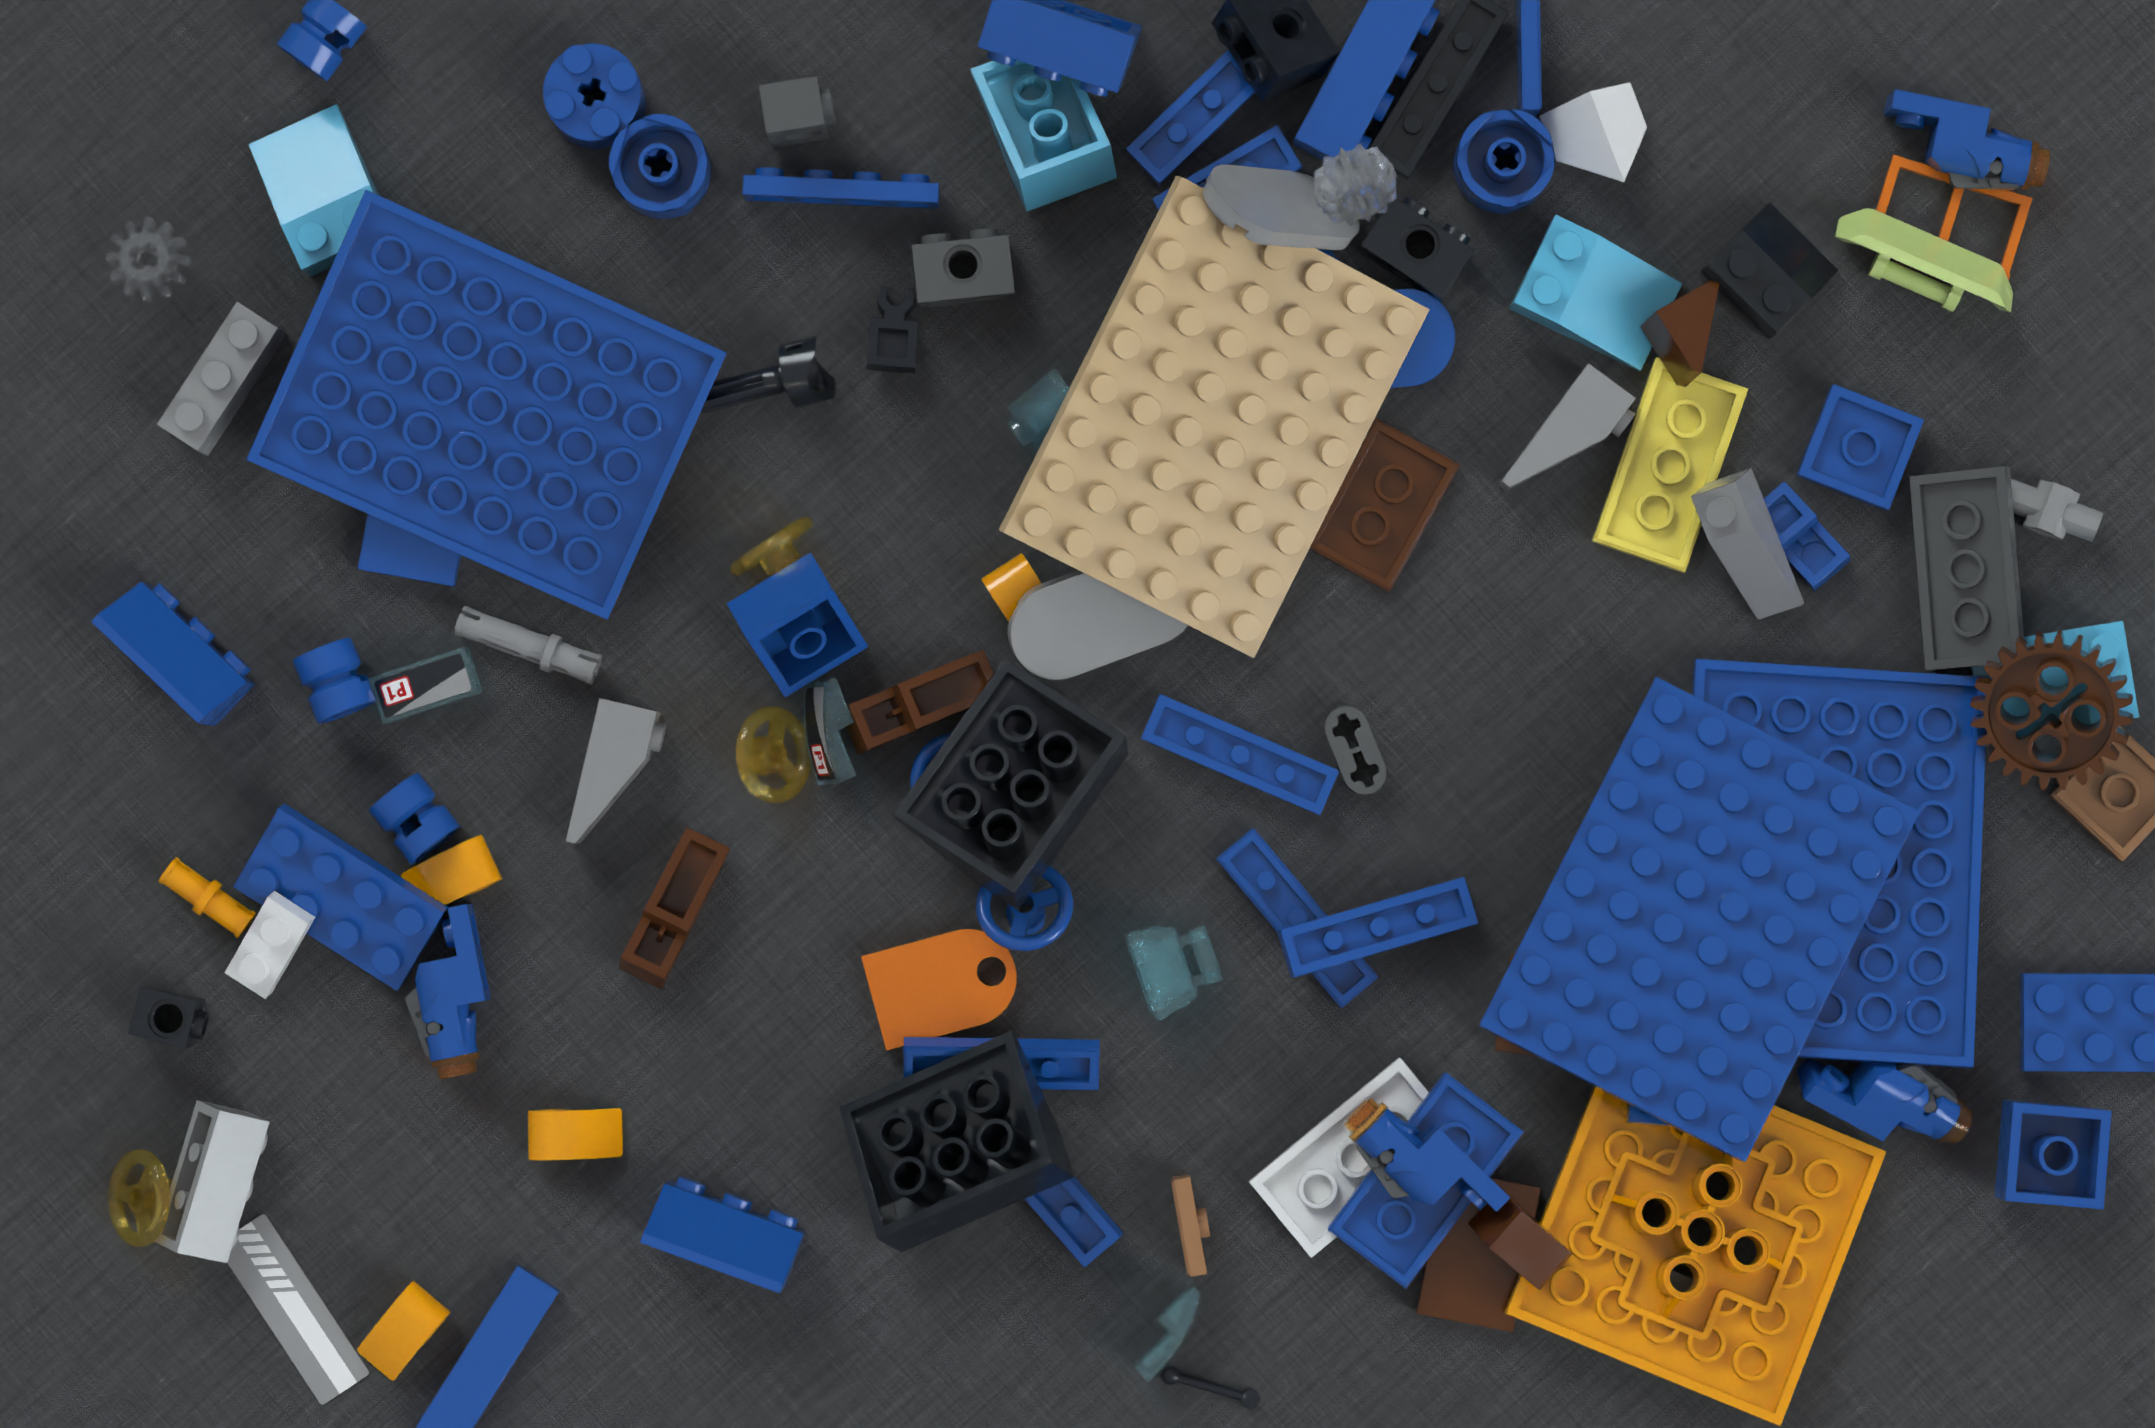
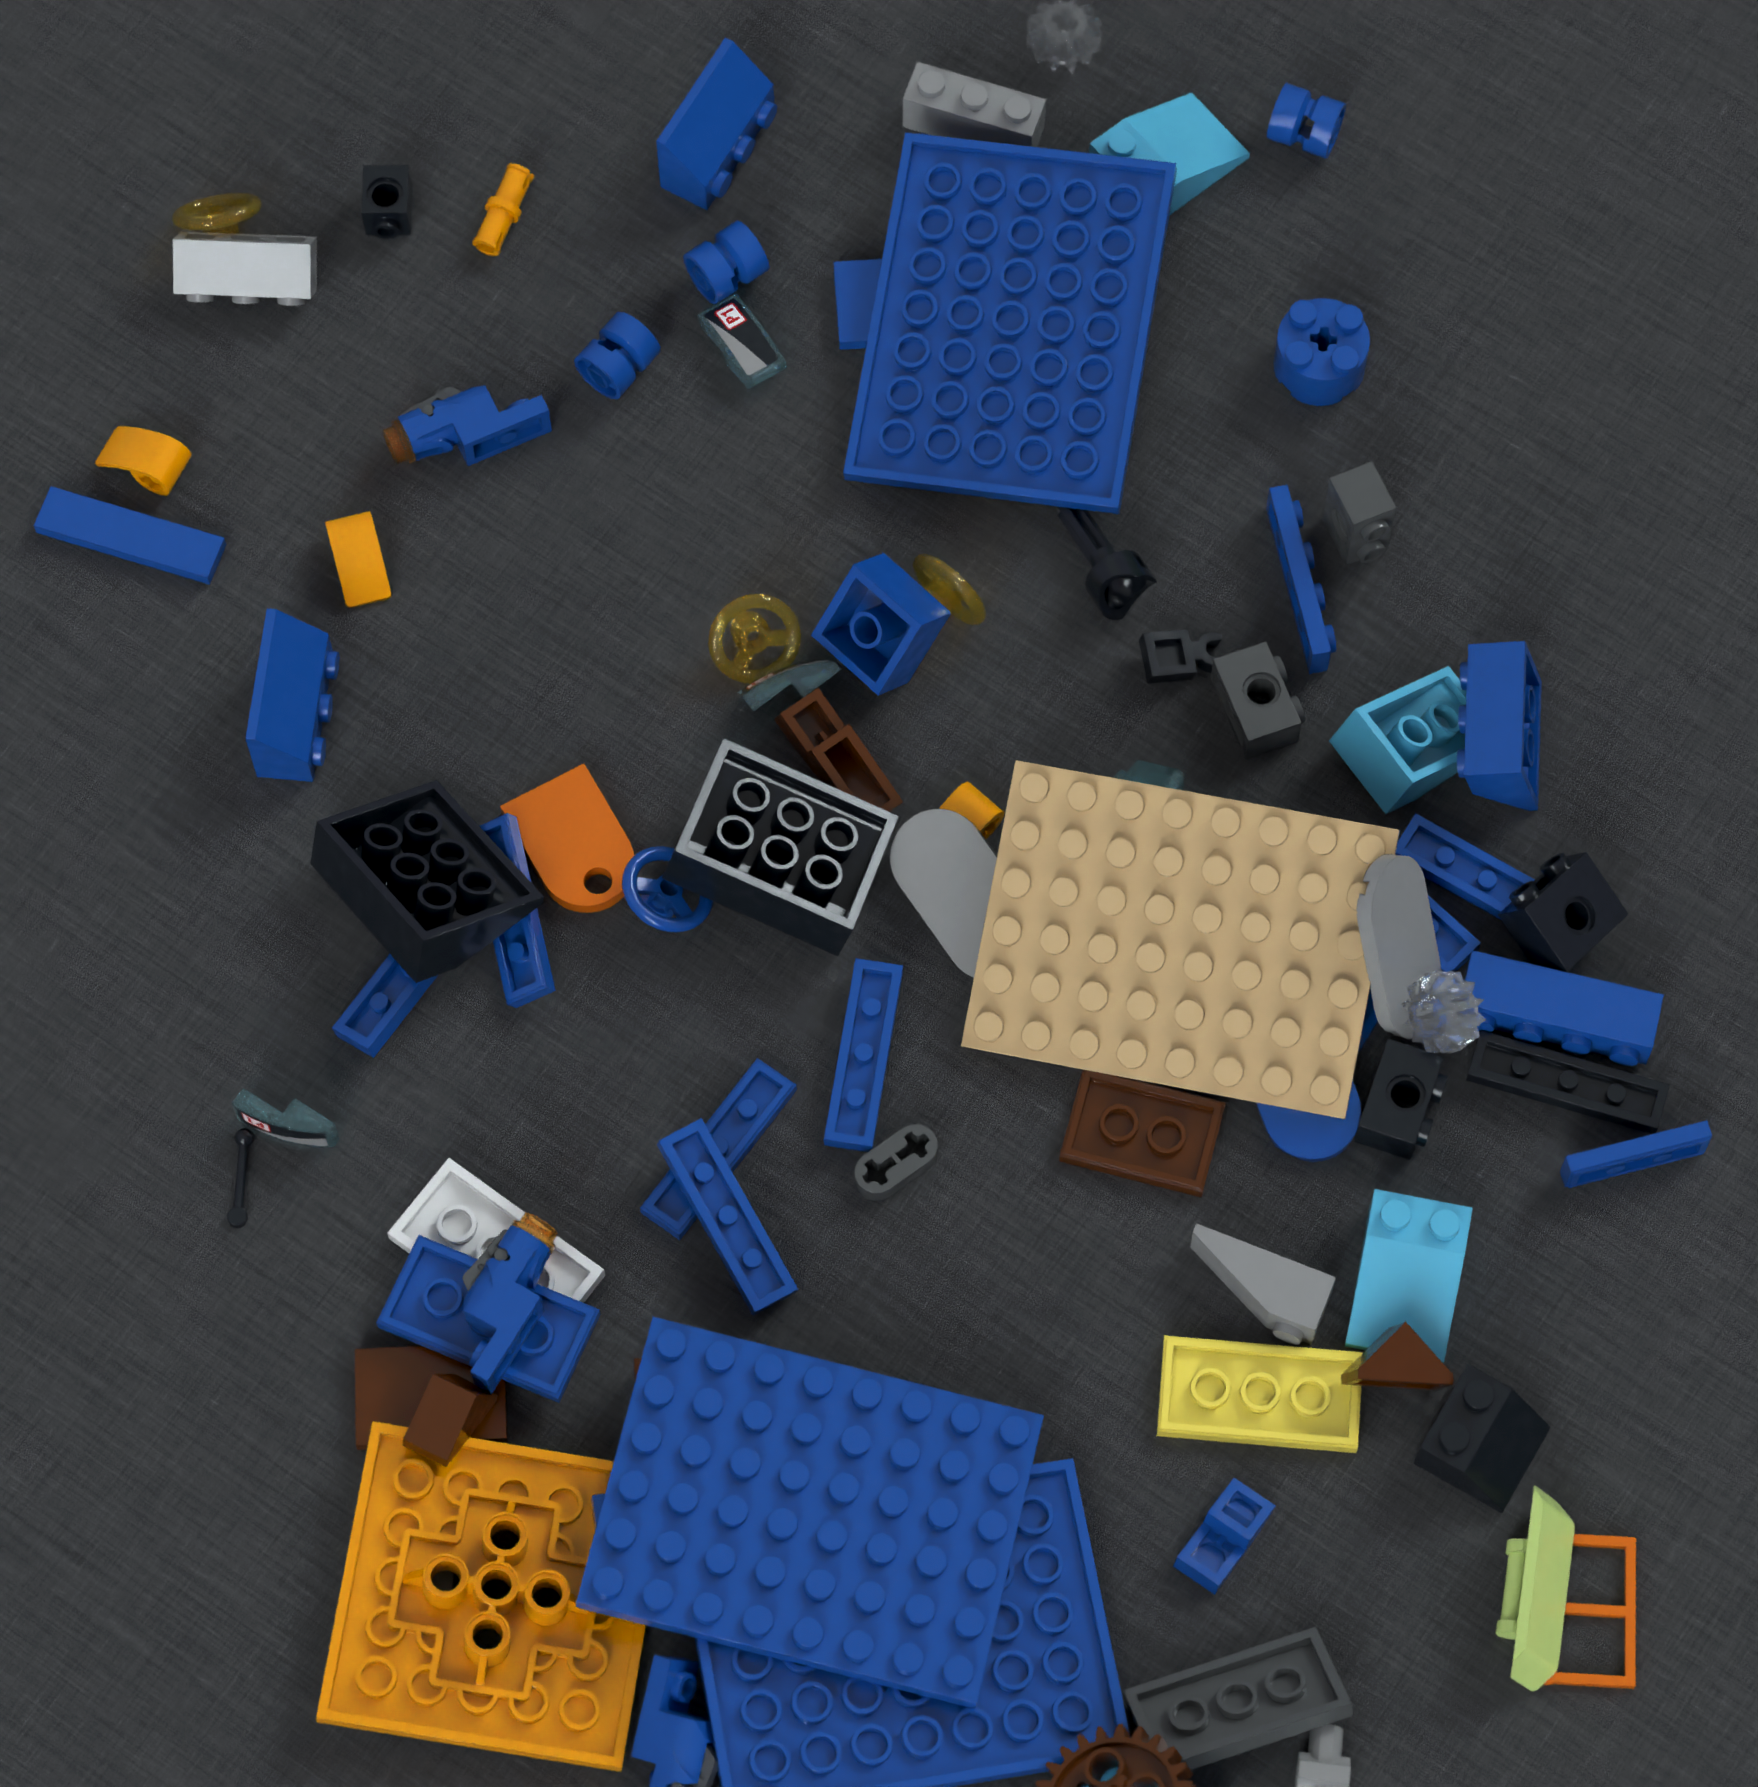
camera: 75 degrees right, 20 degrees down
(269, 944) = (472, 266): white plate -> none
(294, 1311) = (142, 369): light grey sticker -> none
(356, 901) = (530, 314): blue plate -> none
(456, 871) = (577, 403): light orange panel -> none
(529, 645) = (800, 429): light grey pin -> none
(615, 755) = (717, 509): light grey slope -> none
(648, 141) = (1273, 418): blue brick -> none
(673, 908) = (588, 592): reddish brown slope -> none
(1164, 969) = (637, 1034): clear light blue piece -> none
(1192, 1225) = (394, 1115): medium nougat plate -> none
(1501, 133) = (1504, 1181): blue brick -> none
(1598, 131) = (1572, 1242): white slope -> none
(1747, 542) = (1203, 1473): light grey slope -> none
(1859, 447) = (1330, 1571): blue plate -> none
(1964, 148) = (1664, 1599): blue plate -> none

